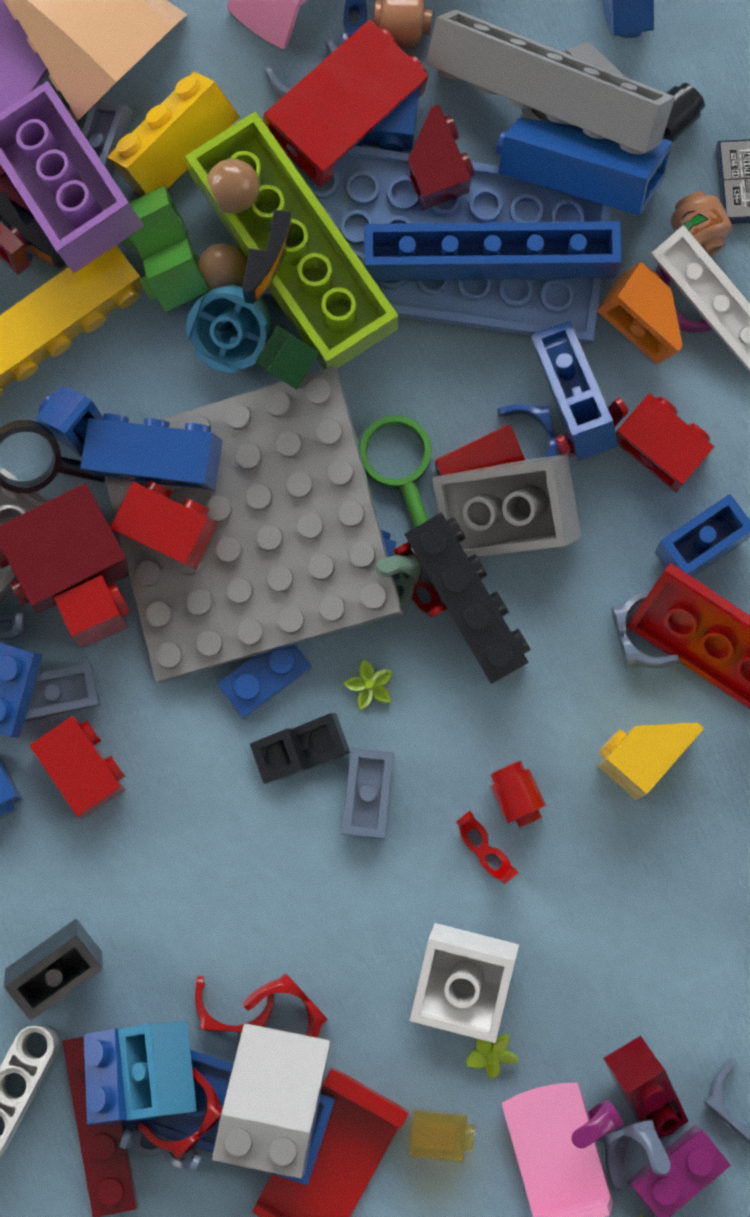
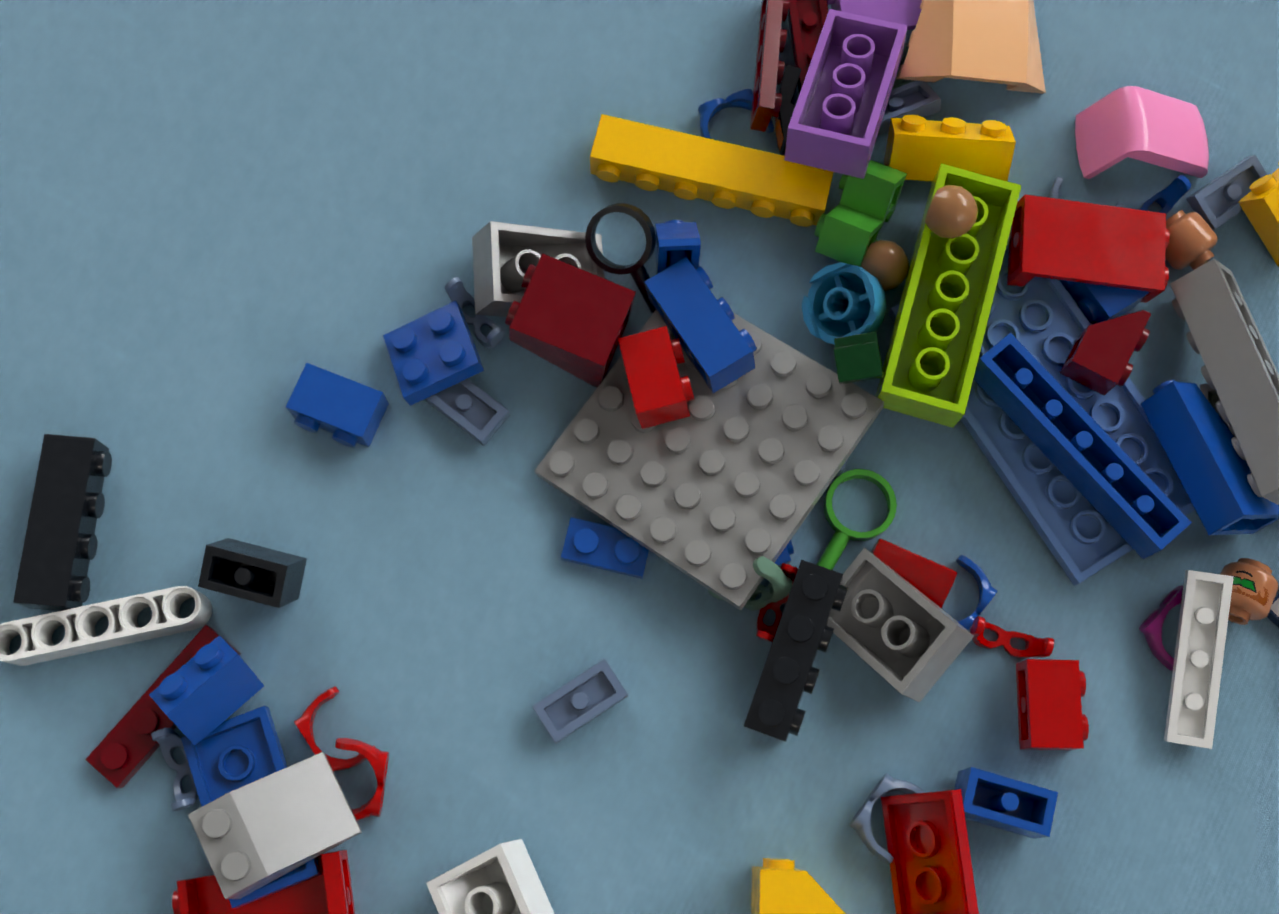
camera: 50 degrees right, 5 degrees down
(78, 766) = (423, 466): red brick -> none
(93, 611) = (546, 379): red brick -> none
(157, 1070) = (229, 714): dark azure brick -> none
(213, 1114) = (188, 783): red cap -> none
(264, 264) = (912, 283): black slope -> none
(299, 748) = (573, 620): black slope -> none
(370, 684) = (666, 634): lime plant -> none
(467, 823) = (603, 861): red cap -> none
(517, 794) = (675, 820): red brick -> none
(575, 391) = (1027, 601): blue slope -> none
(644, 312) = (1136, 604): orange slope -> none

